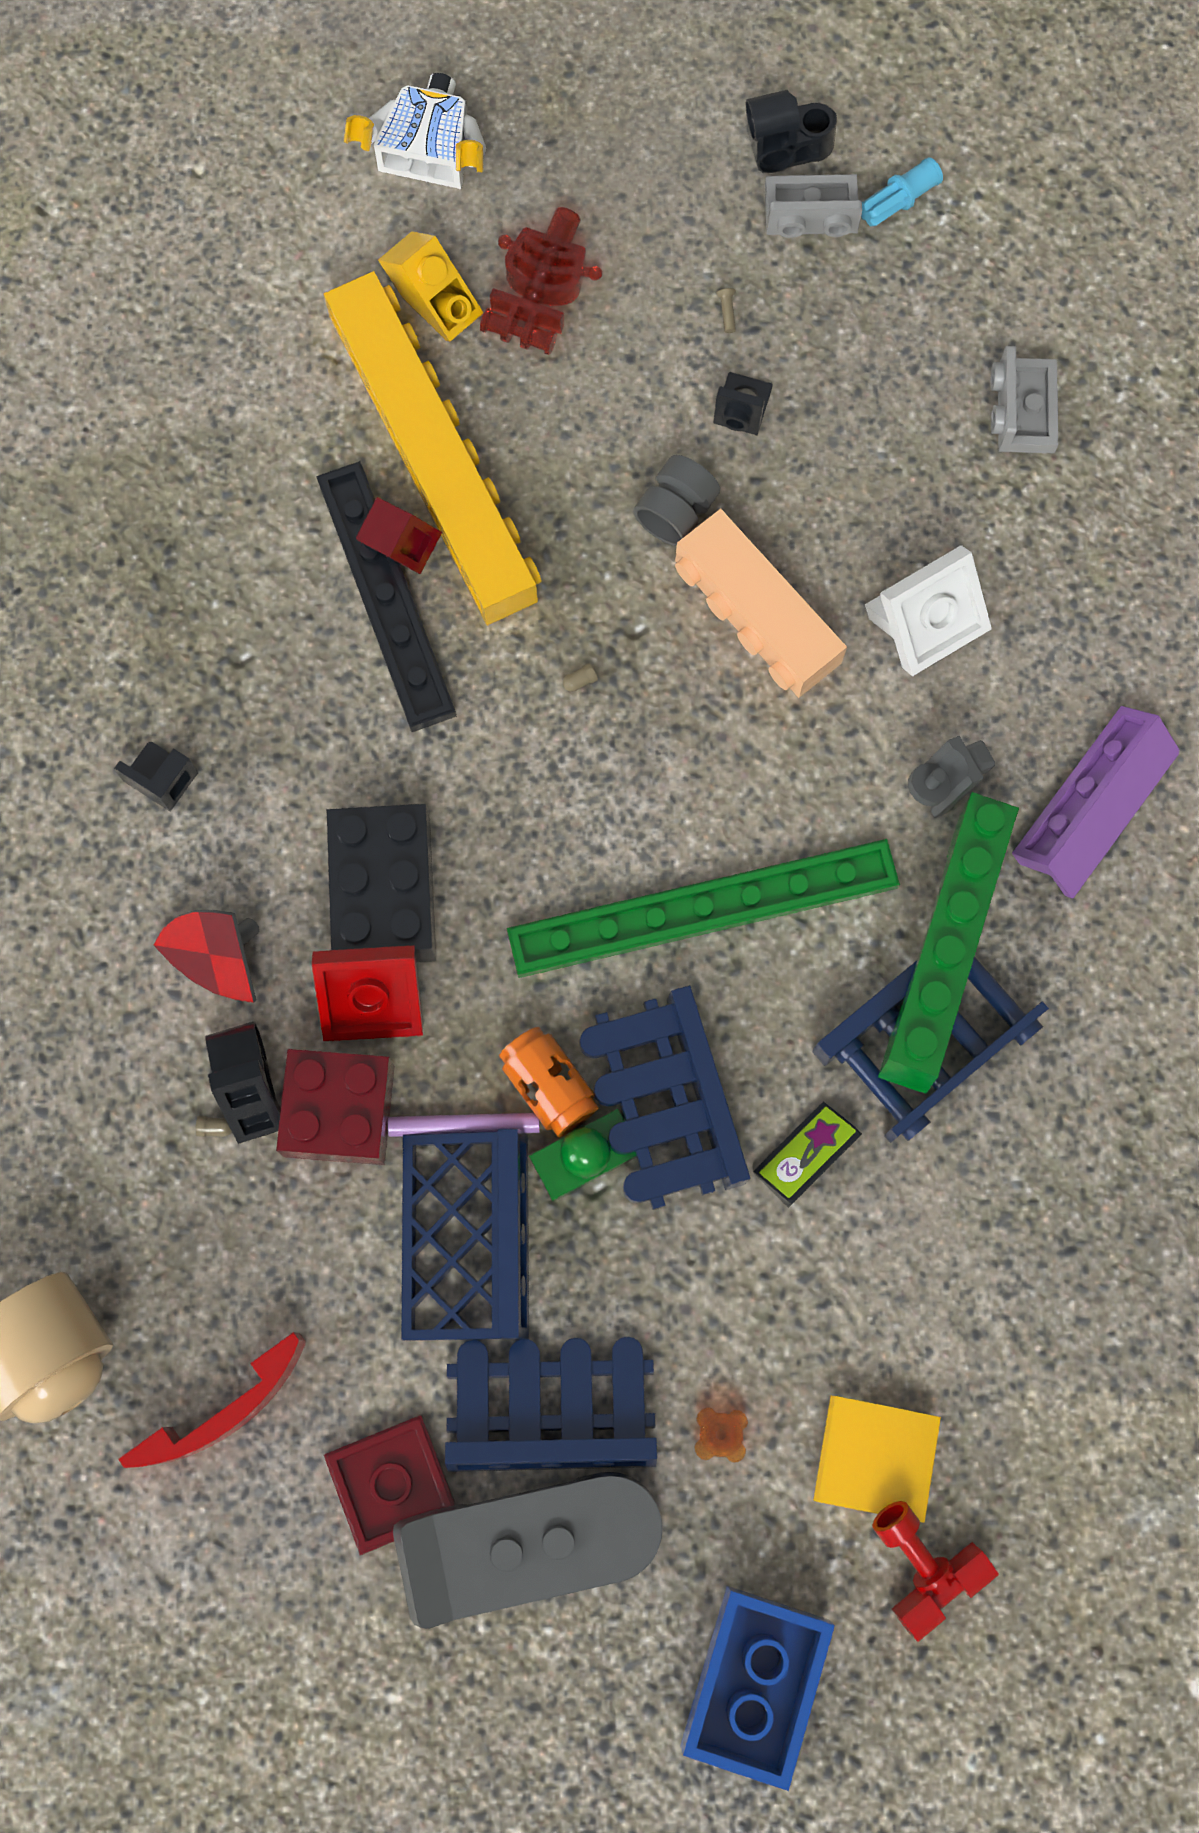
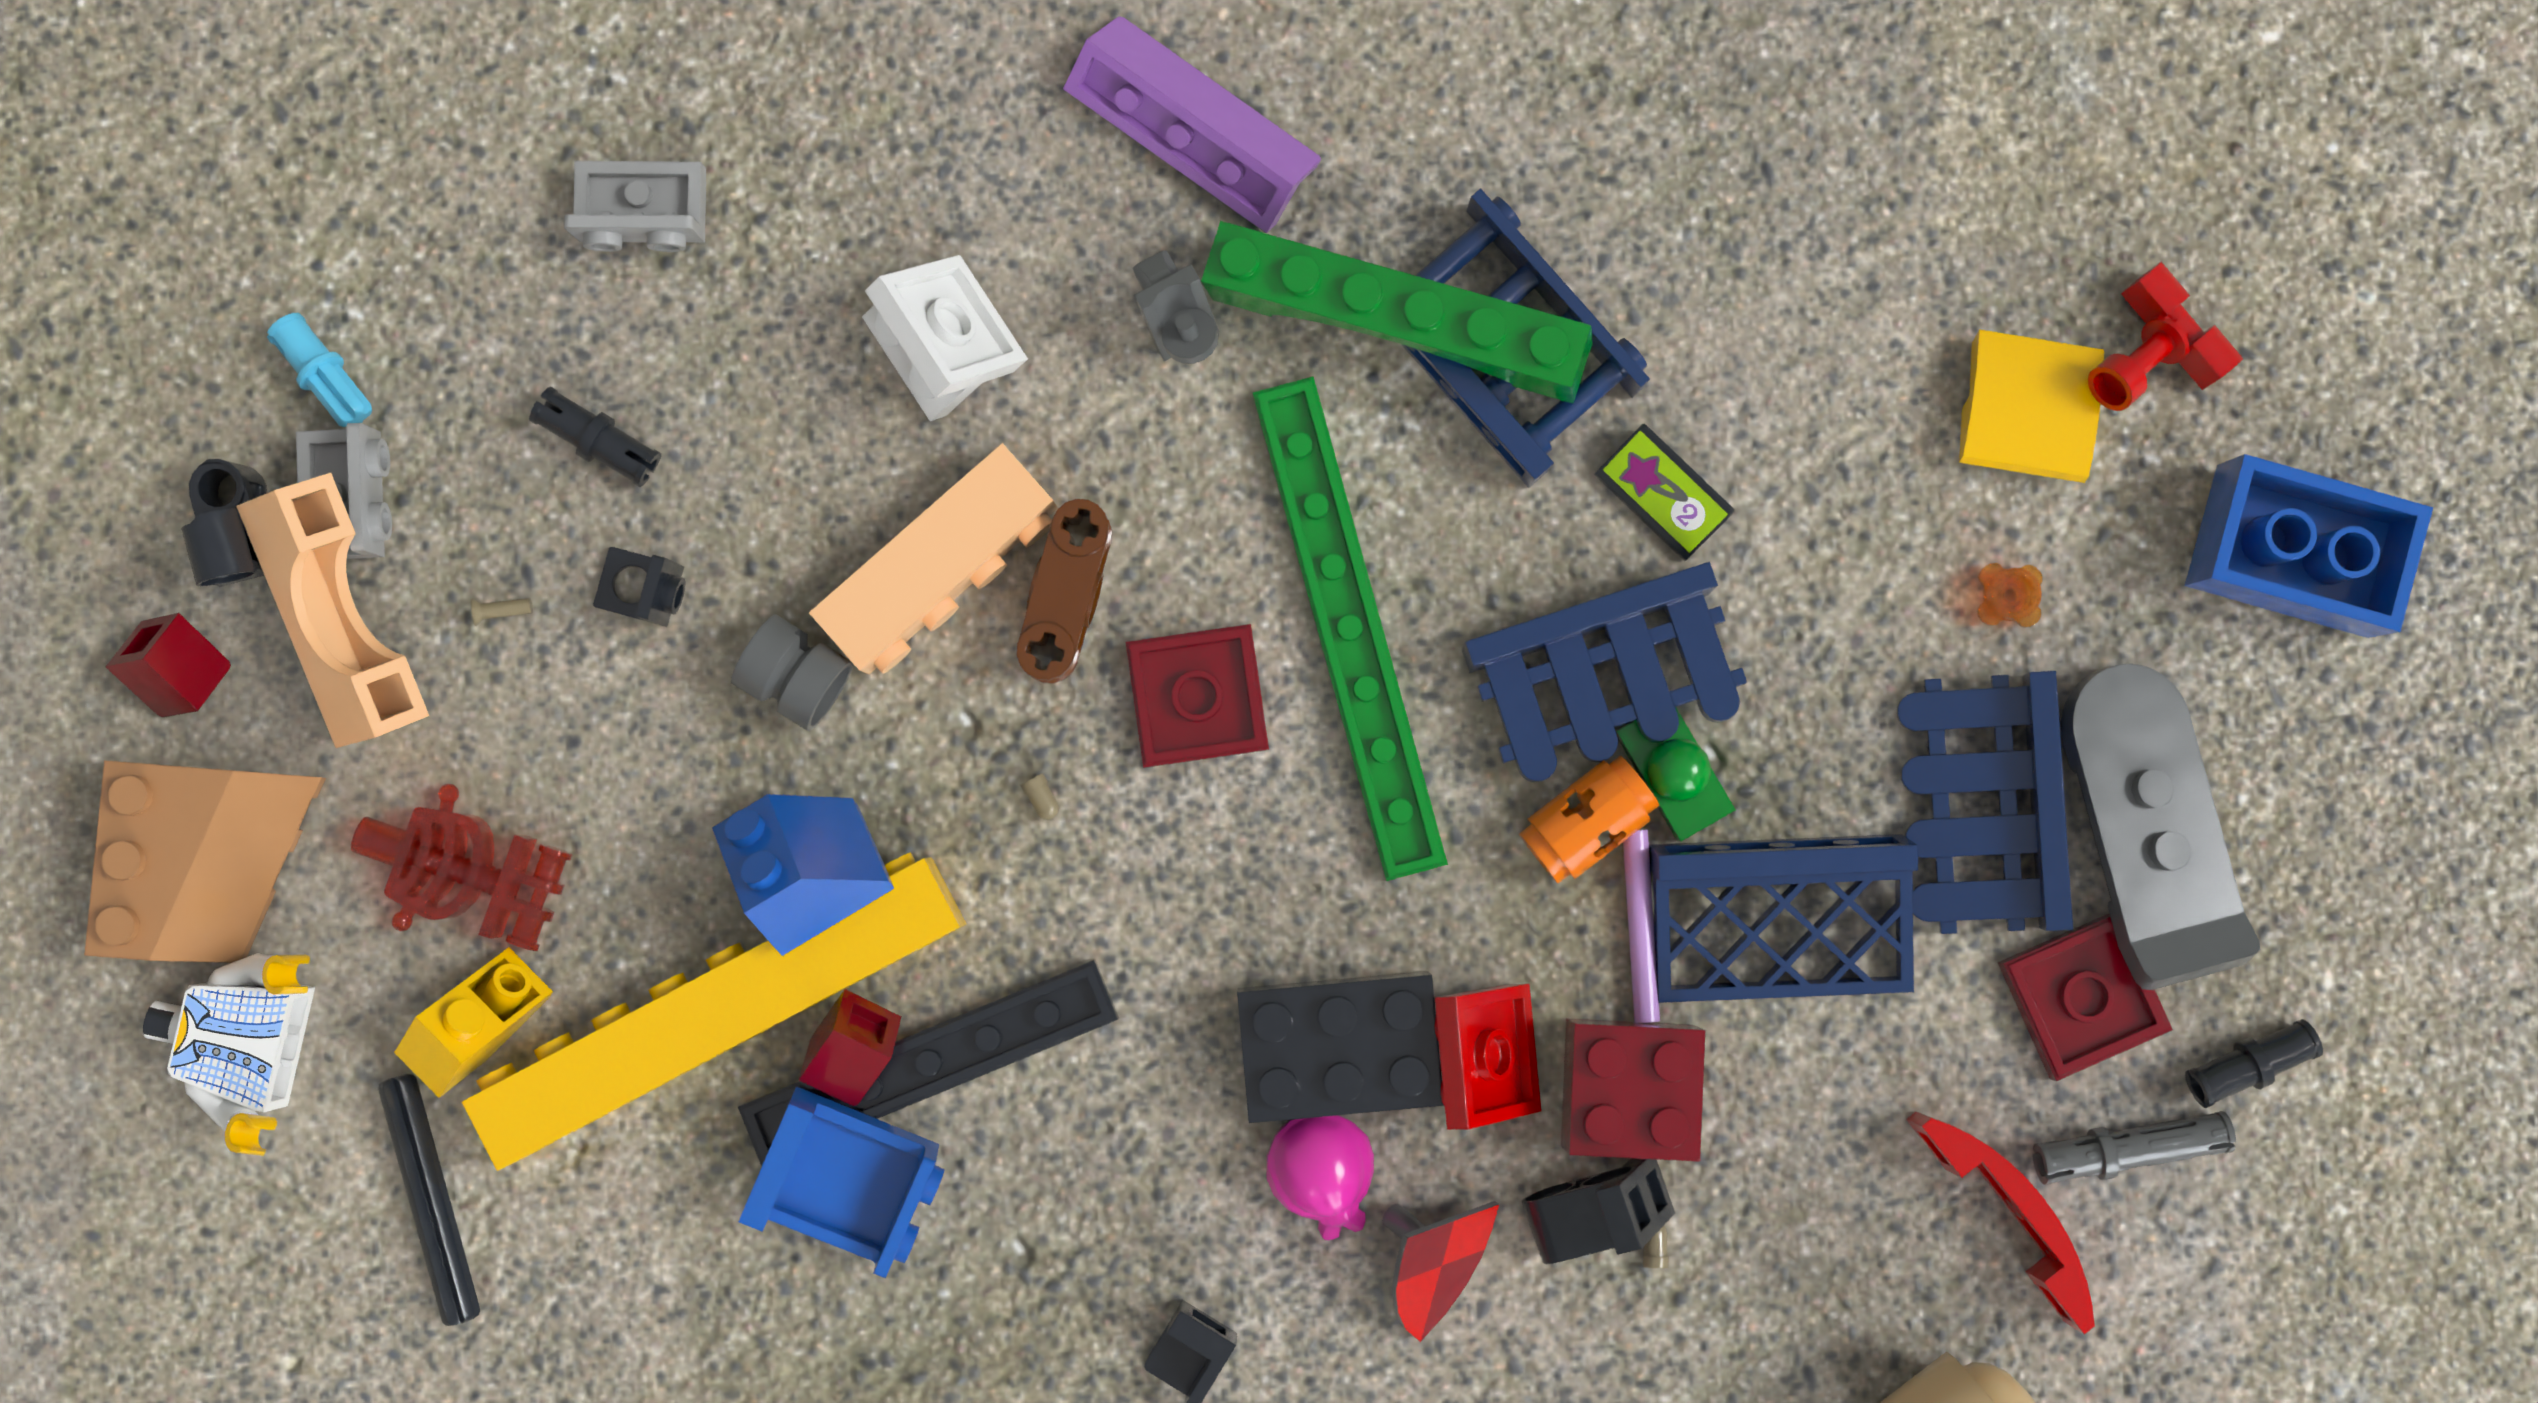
camera: 90 degrees left, 10 degrees up
(265, 1516) = (2108, 1152): none -> dark grey pin
(287, 871) = (1322, 1171): none -> dark pink hat
(303, 527) = (844, 1180): none -> blue panel
(305, 257) = (429, 1199): none -> black axle
(328, 1624) = (2254, 1063): none -> black pin
(534, 498) = (801, 864): none -> blue slope
(554, 104) = (189, 859): none -> medium nougat wedge
(653, 793) = (1197, 696): none -> dark red tile
(690, 94) = (169, 665): none -> dark red panel
(734, 695) = (1064, 591): none -> reddish brown piece
(764, 172) = (303, 549): none -> light nougat arch
(853, 372) = (595, 436): none -> black pin

